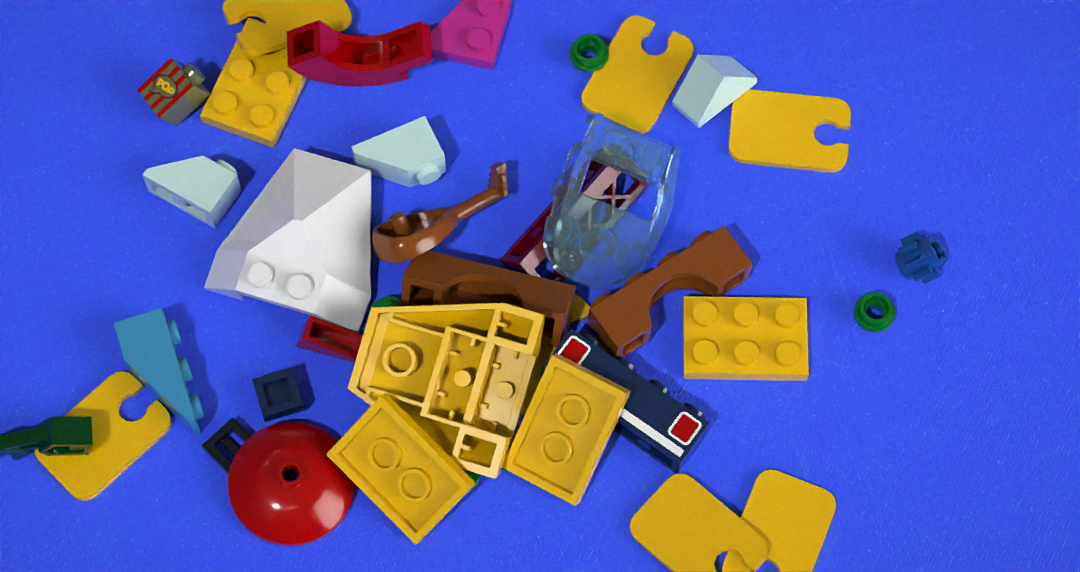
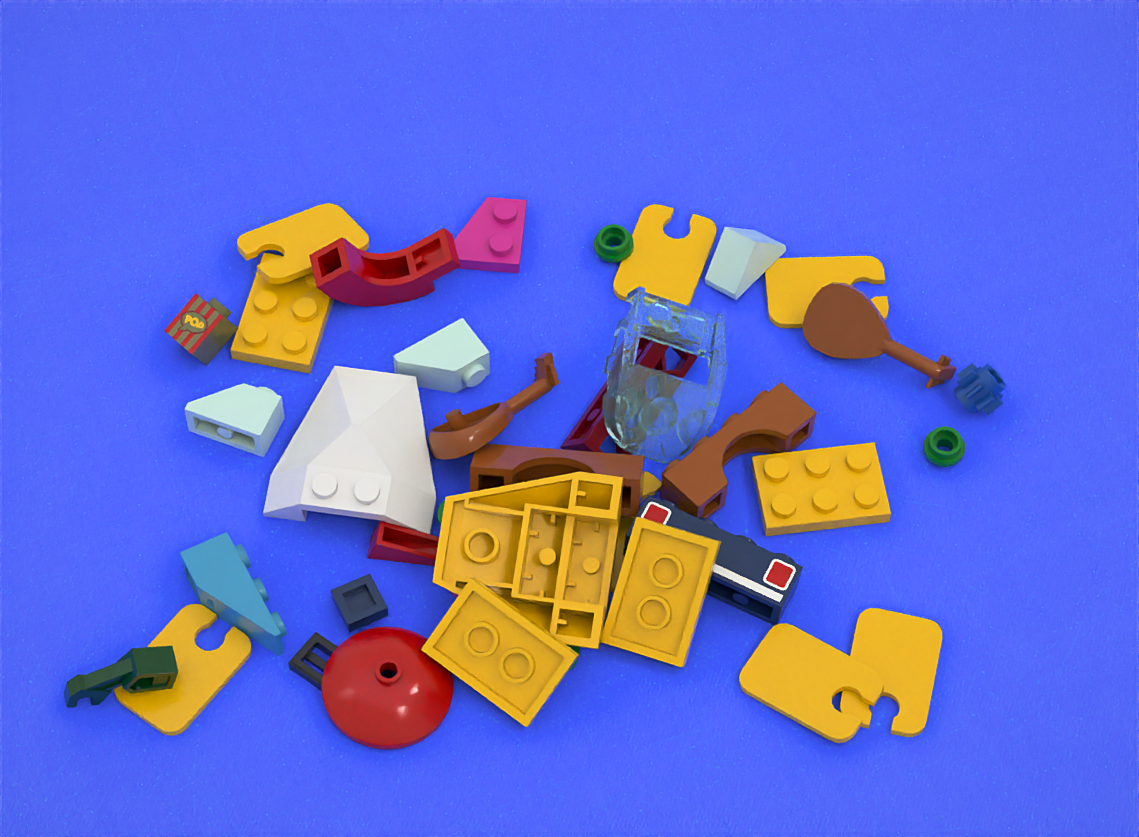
camera: 10 degrees left, 10 degrees down
(803, 175) = (849, 326): none -> dark orange piece

